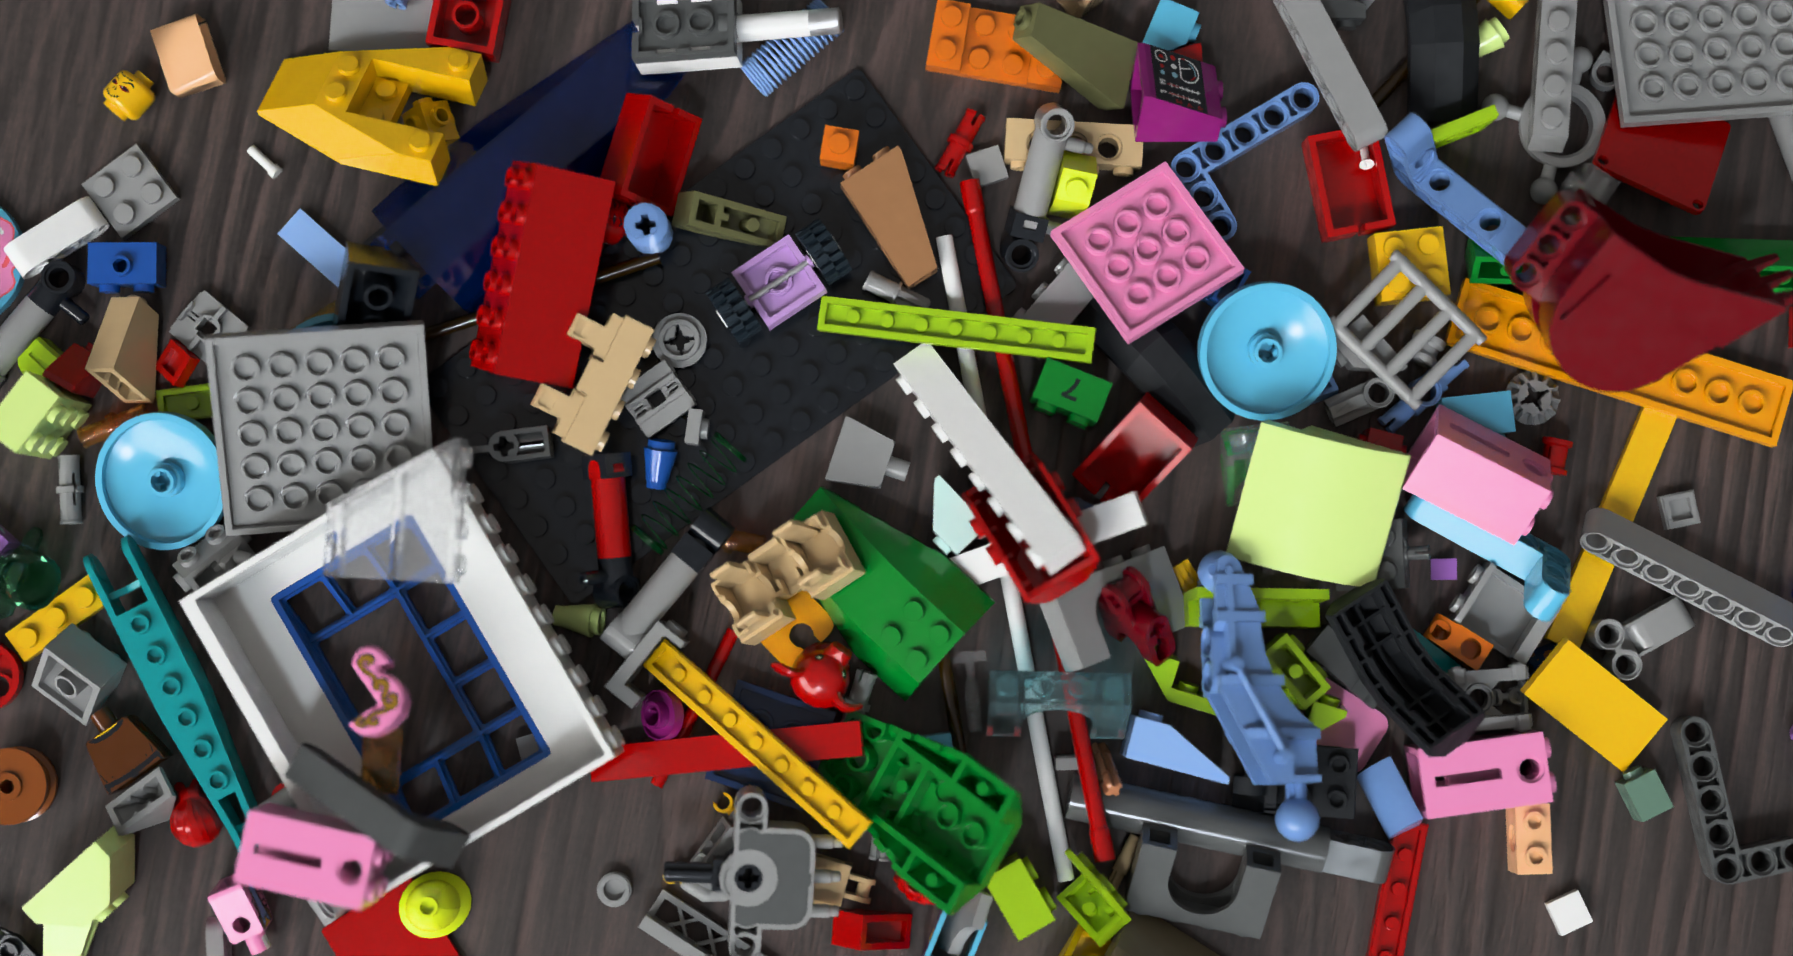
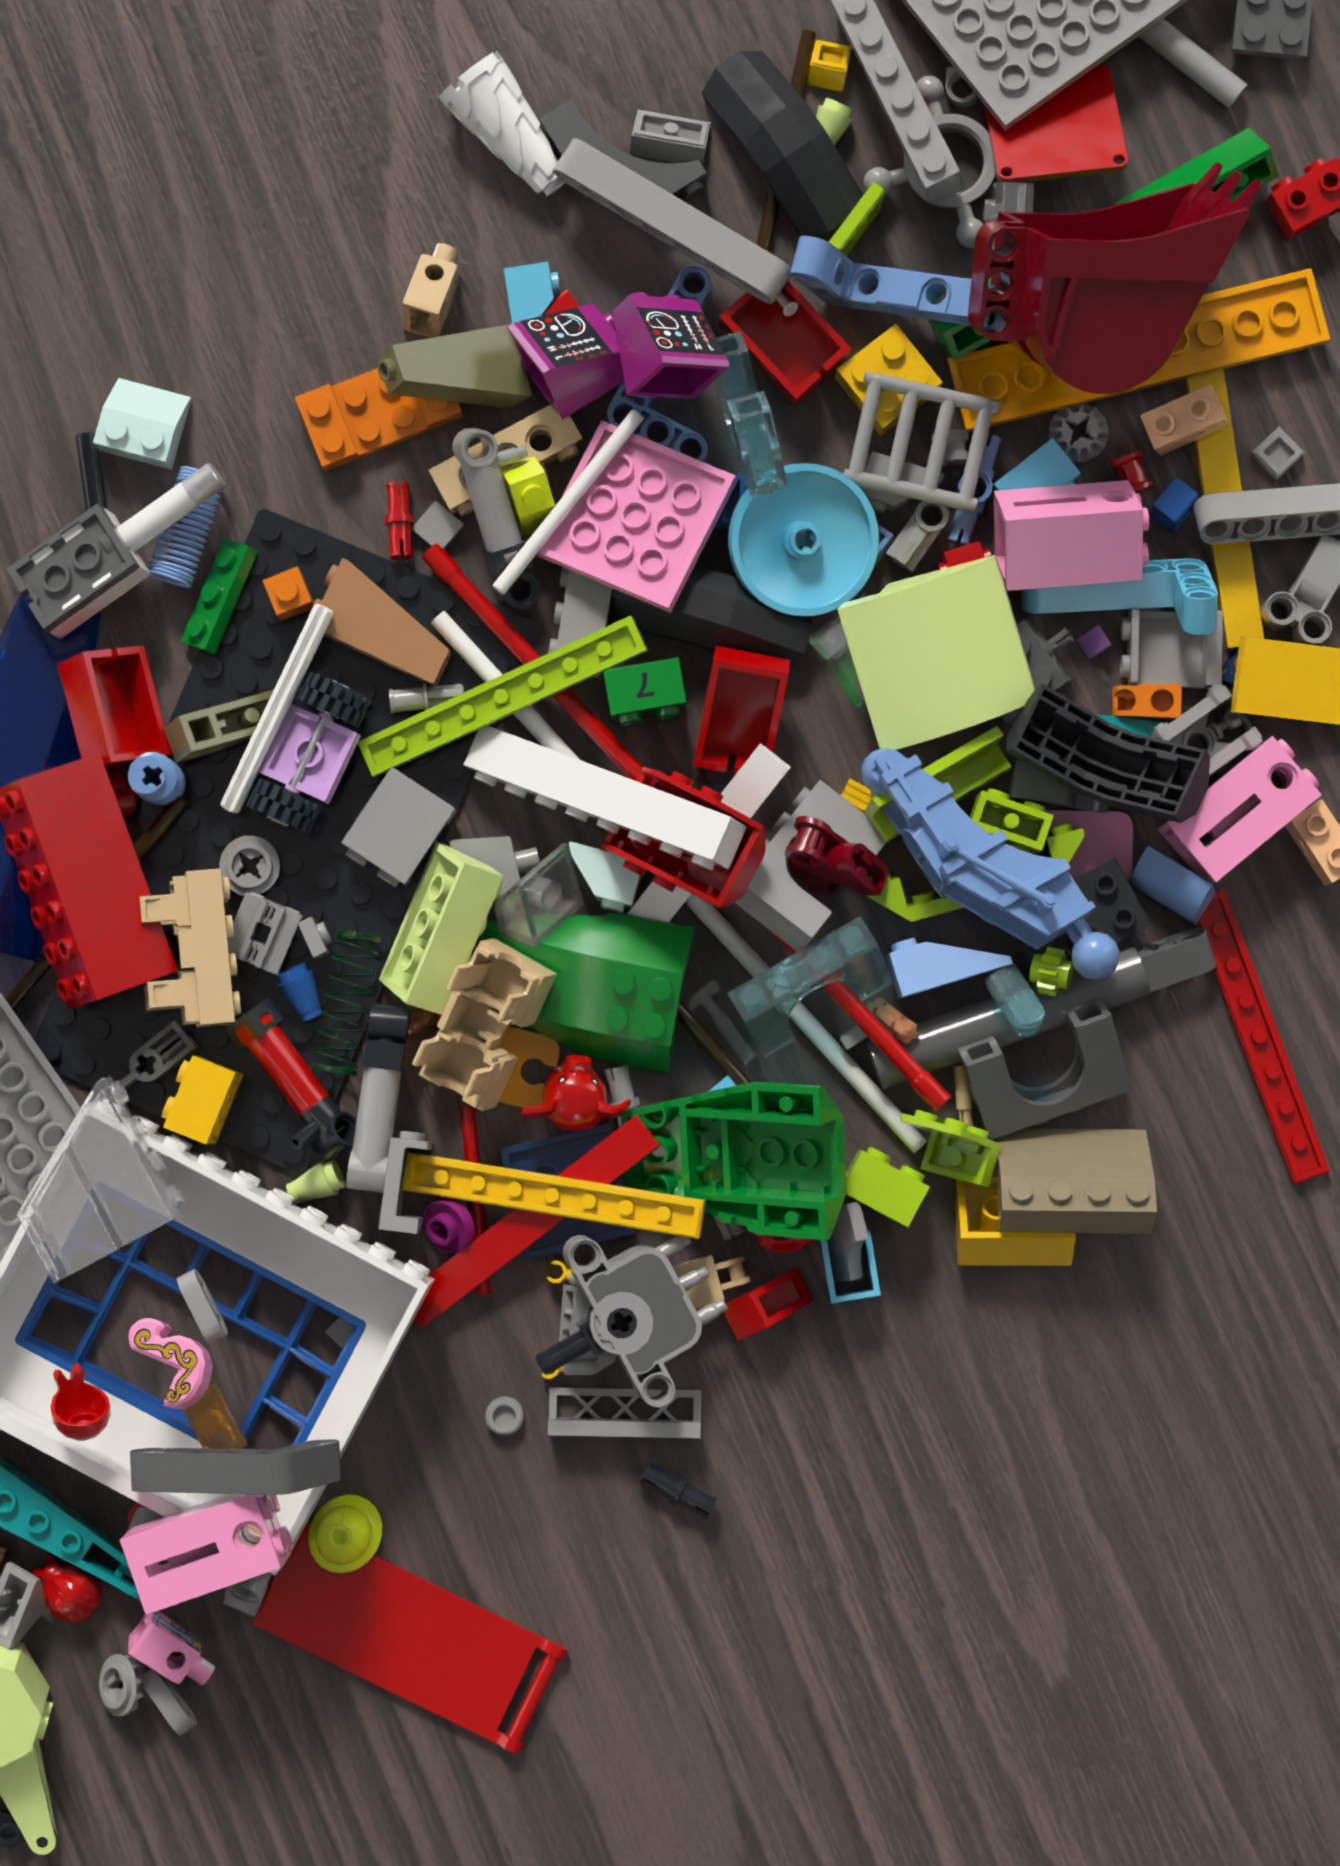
camera: 30 degrees left, 0 degrees up
(179, 925) = (114, 1671): none -> light grey gear
(283, 683) = (78, 1407): none -> red piece
(428, 664) = (202, 1306): none -> light grey beam
(529, 500) = (202, 1099): none -> yellow brick
(775, 231) = (276, 708): none -> white axle
(784, 116) = (219, 596): none -> green plate
(797, 480) = (440, 927): none -> yellowish green slope
(812, 381) = (397, 827): none -> light grey panel
(888, 506) = (540, 899): none -> clear slope
(1100, 209) = (567, 502): none -> white piece
(1212, 814) = (1016, 1000): none -> clear light blue arm
(1252, 134) = (666, 346): none -> magenta slope
(1254, 809) = (1051, 971): none -> lime gear
(1282, 226) = (749, 420): none -> clear light blue arch
(1573, 501) = (1174, 505): none -> blue slope
(1623, 439) = (1184, 420): none -> light nougat brick

